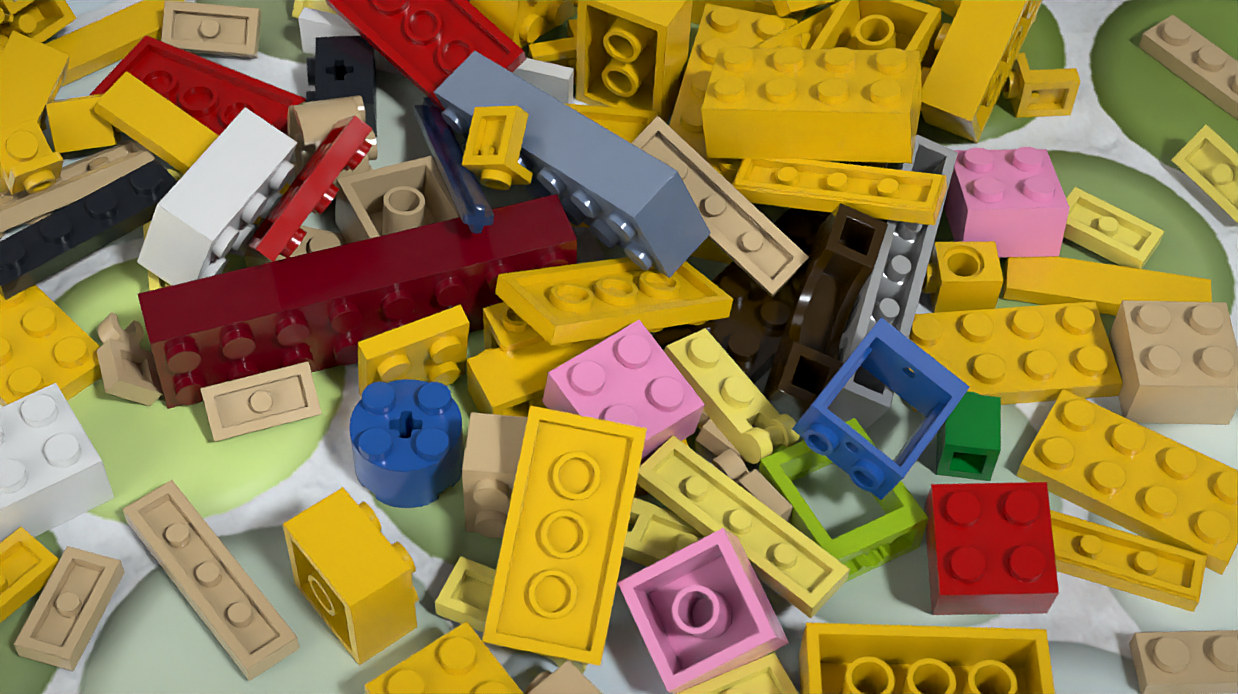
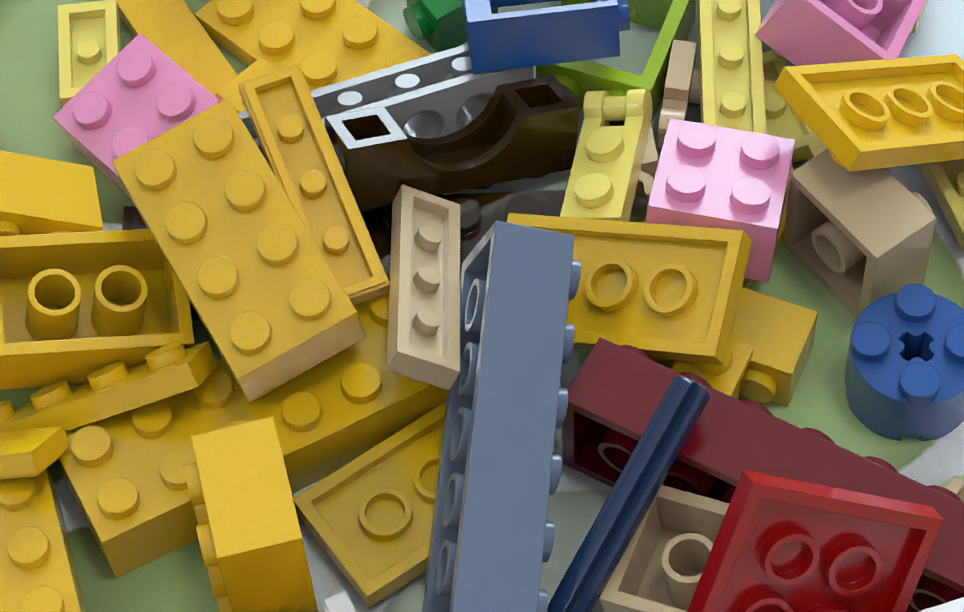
camera: 125 degrees left, 5 degrees up
(422, 350) = (845, 400): yellow plate -> none
(495, 146) = (576, 463): yellow bracket -> none

